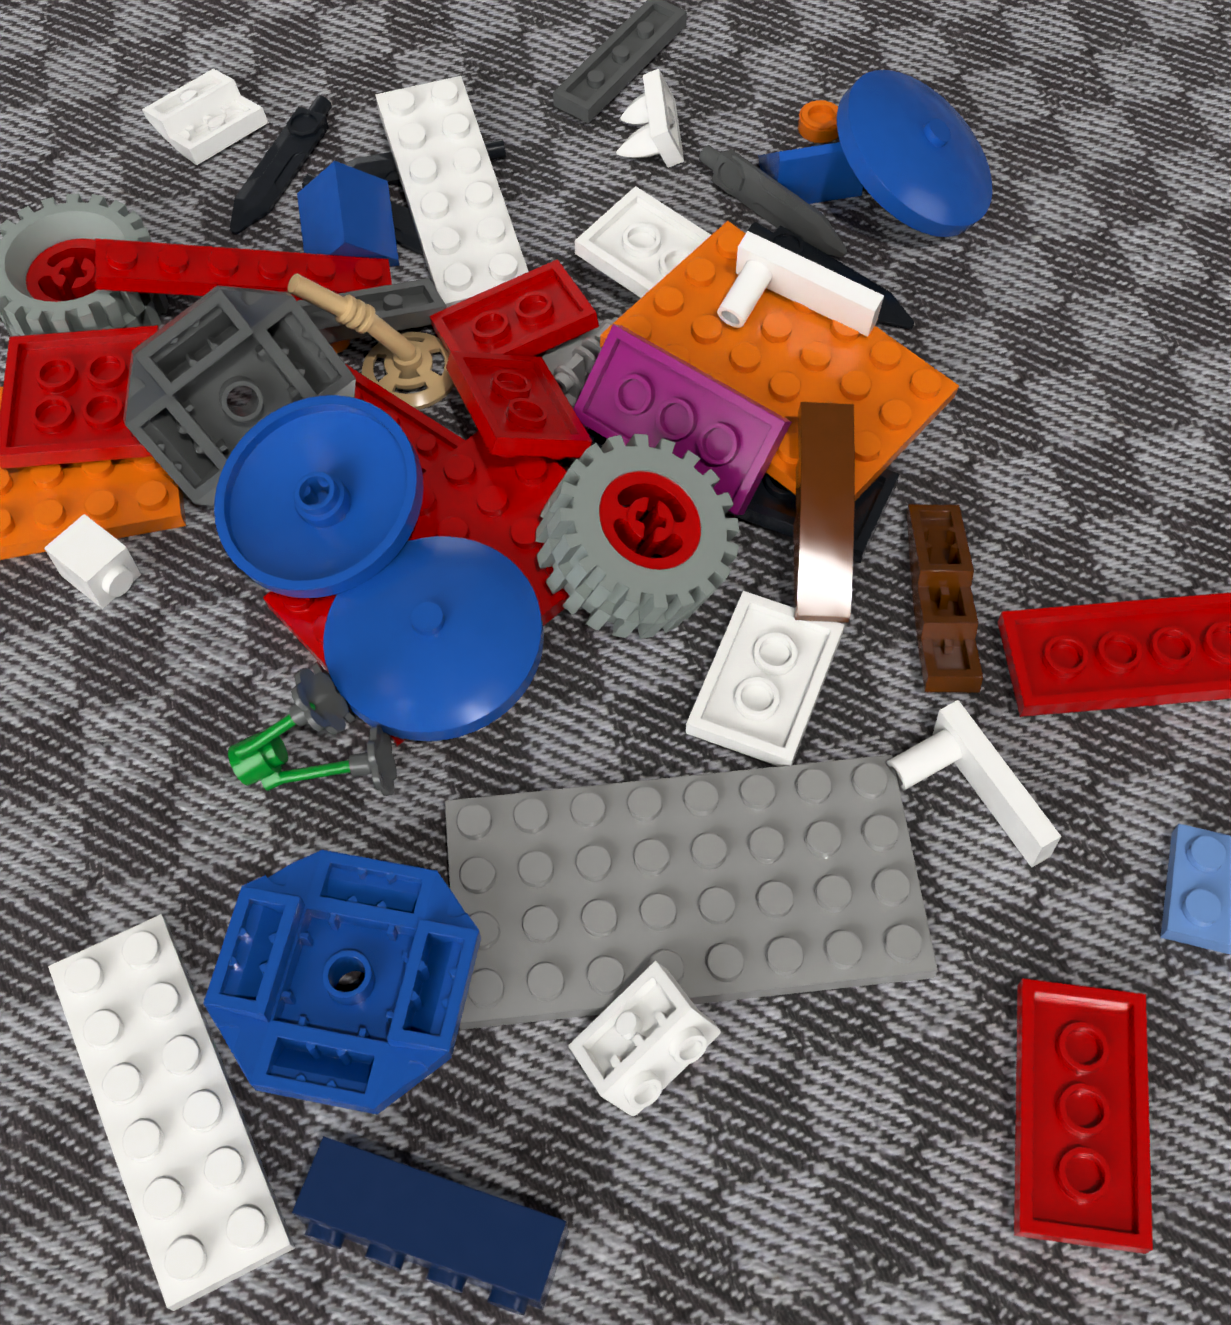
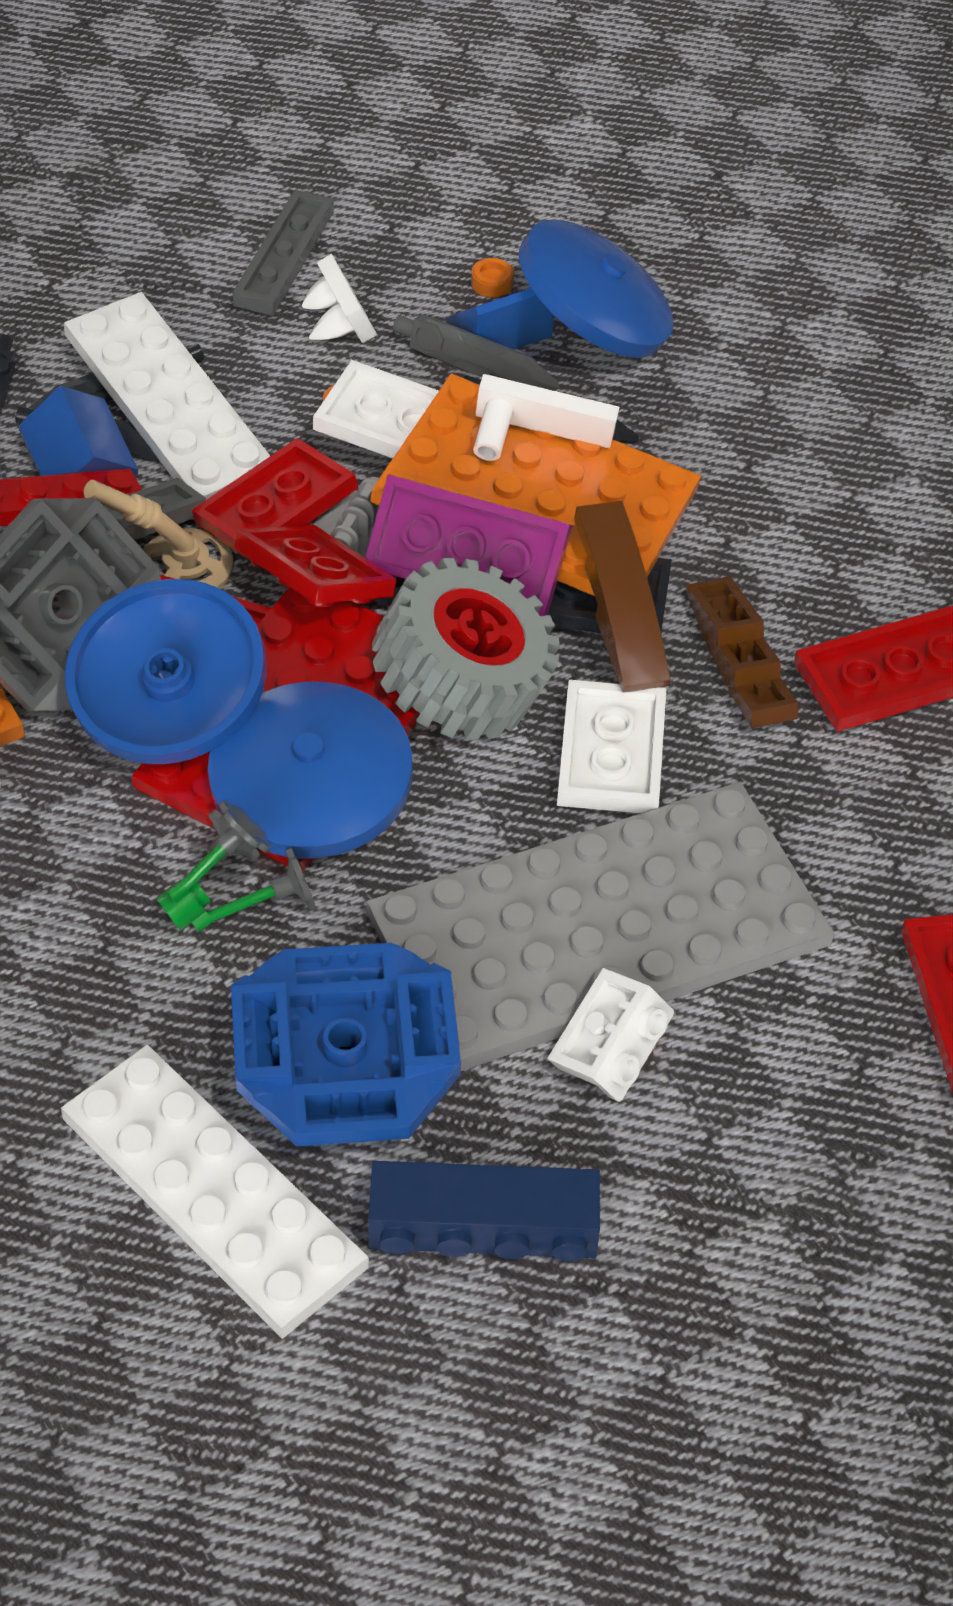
camera: 20 degrees left, 10 degrees down
(962, 742) = (828, 779): white piece -> none

